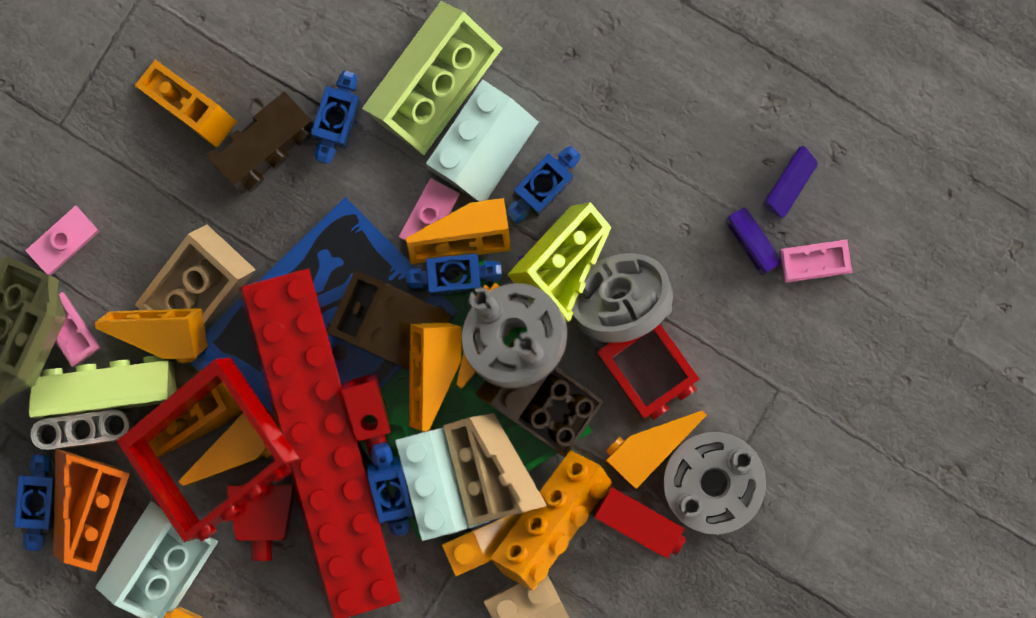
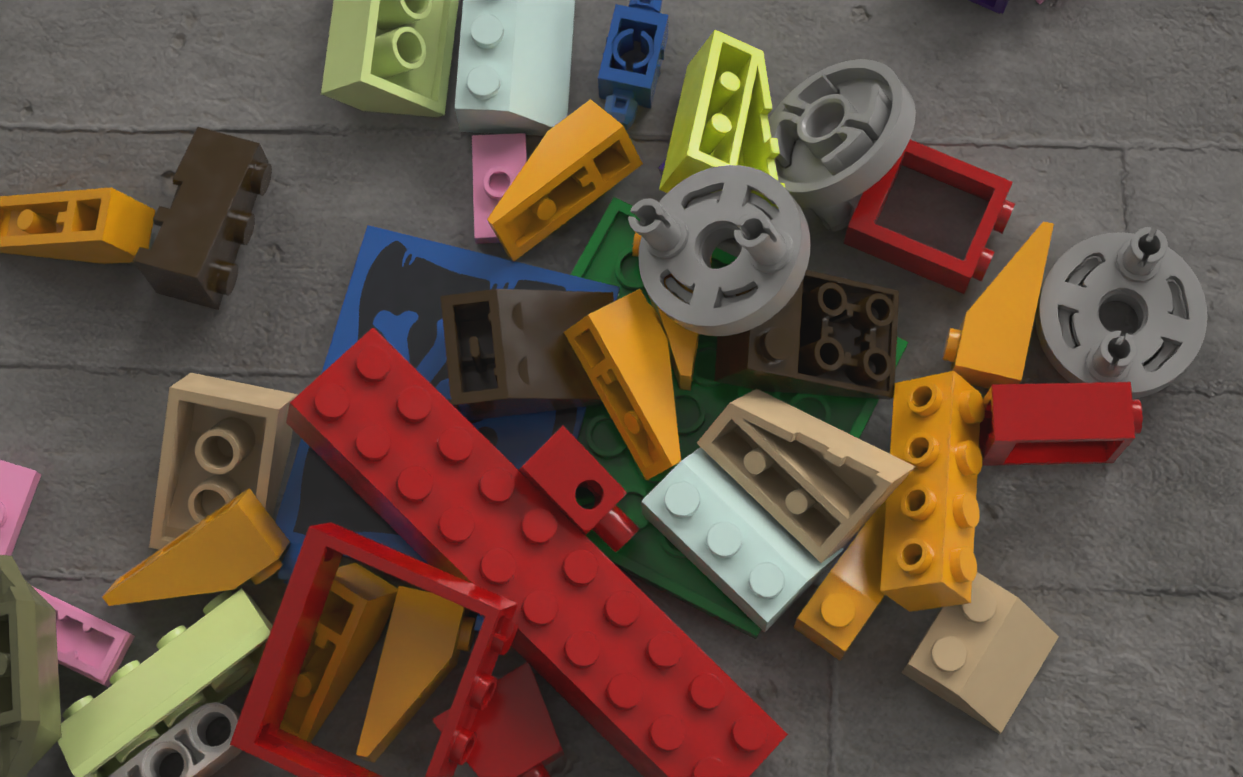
camera: 25 degrees left, 10 degrees down
(346, 85) = (283, 96): blue piece -> none
(393, 510) = (701, 608): blue piece -> none
(418, 279) = (537, 268): blue piece -> none

